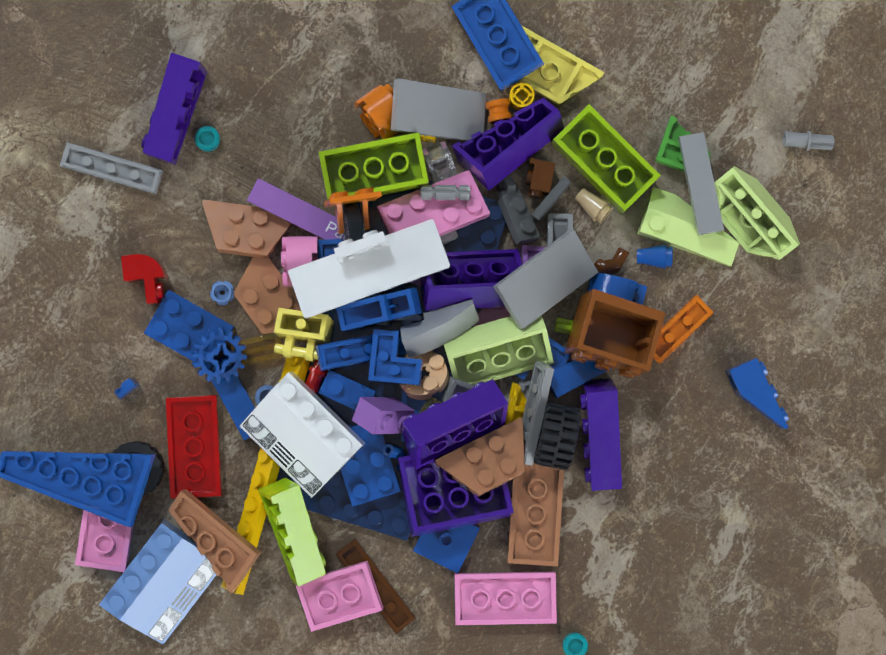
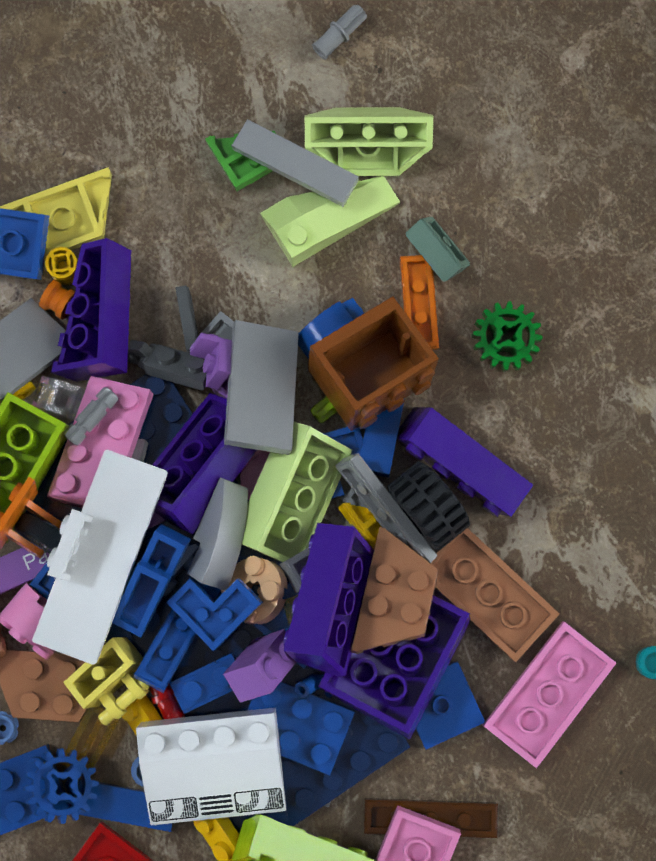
camera: 55 degrees left, 5 degrees down
(540, 177) = (158, 313): reddish brown brick -> none
(542, 237) = (217, 358): none -> medium lavender bracket
(594, 206) = (232, 283): tan cone -> none
(605, 159) = (192, 234): lime brick -> none
(612, 265) = (304, 313): reddish brown arm -> none
(656, 256) = (330, 264): blue cone -> none
(702, 387) = (516, 345): none -> green gear
(720, 313) = (437, 248): none -> sand green slope
(752, 386) = (538, 276): blue slope -> none

